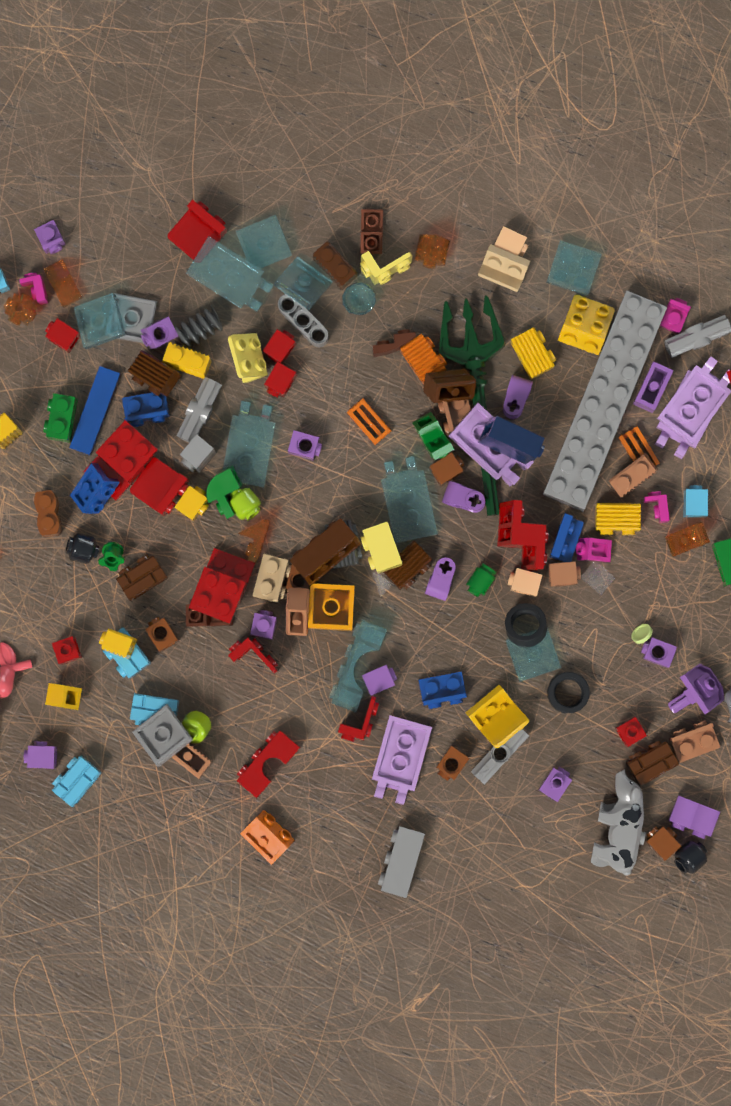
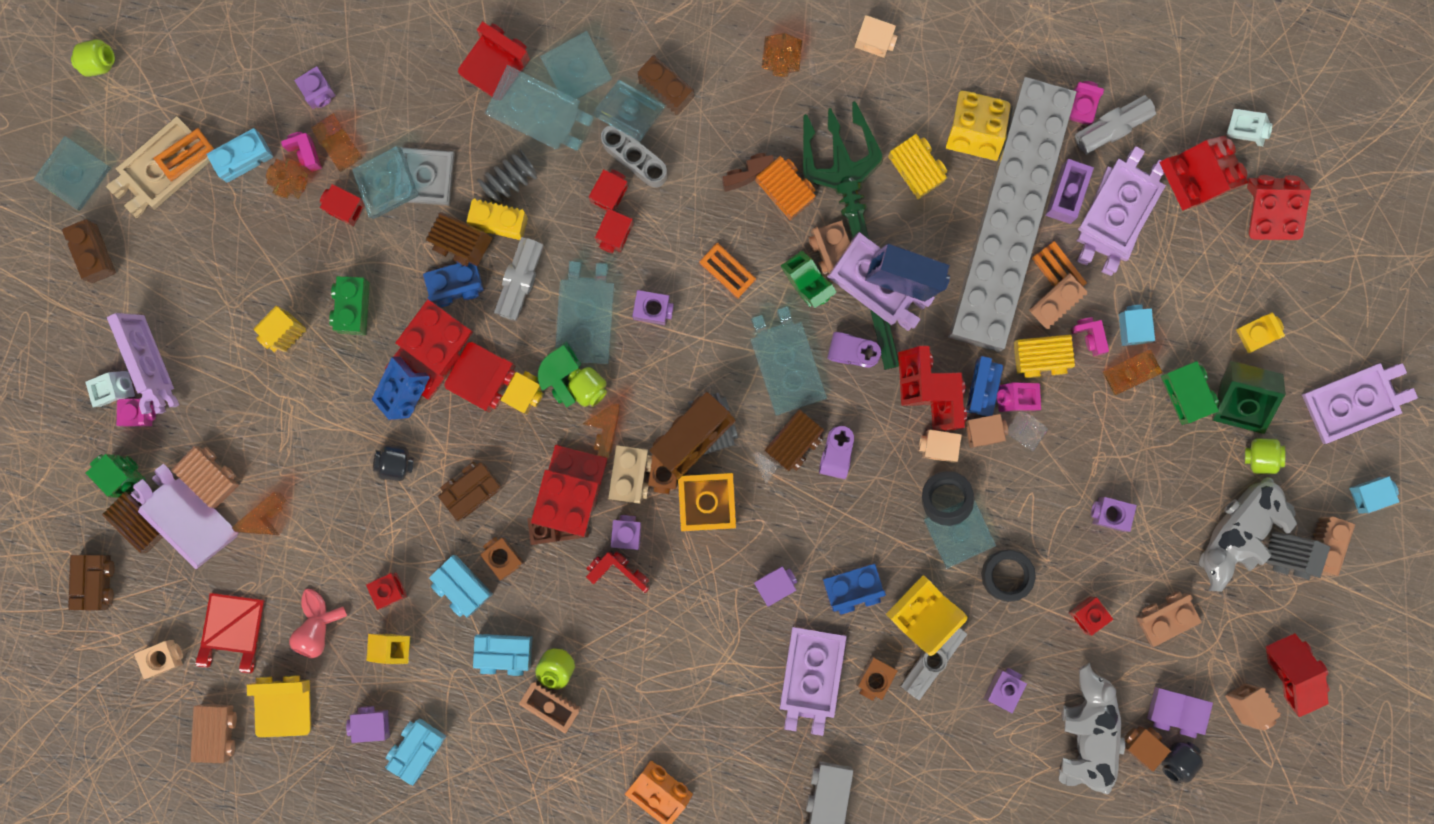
camera: 15 degrees left, 0 degrees up
(48, 520) = (345, 417): dark orange brick -> none
(95, 410) = (391, 293): blue tile -> none
(112, 556) = (430, 469): green brick -> none
(117, 643) = (446, 577): yellow brick -> none
(162, 735) = (515, 685): light grey tile -> none
(167, 333) = (466, 181): medium lavender brick -> none
(197, 454) = (521, 332): light grey brick -> none
(247, 356) = (571, 206): light yellow bracket -> none
(253, 777) = (633, 722): red arch -> none
(297, 611) = (665, 512): nougat brick -> none
(350, 733) = (747, 656): red bracket -> none
(359, 298) = (699, 122): clear light blue hair -> none
(368, 639) = (756, 536): clear light blue arch -> none
(371, 231) = (705, 40): copper slope -> none
(371, 269) = (724, 90): light yellow bracket -> none
(382, 548) = (761, 422): light yellow brick -> none
(447, 468) = (829, 317): dark orange brick -> none
(449, 385) = (822, 215): reddish brown brick -> none
(481, 580) = (886, 449): green brick -> none
(504, 268) = (871, 66): tan bracket -> none
(518, 394) = (904, 217): medium lavender piece -> none
(573, 268) = (955, 58): clear light blue plate -> none
(641, 633) = (1089, 493): yellowish green piece -> none
(652, 762) = (1121, 650): reddish brown brick -> none
(701, 688) = (1170, 553): medium lavender piece -> none

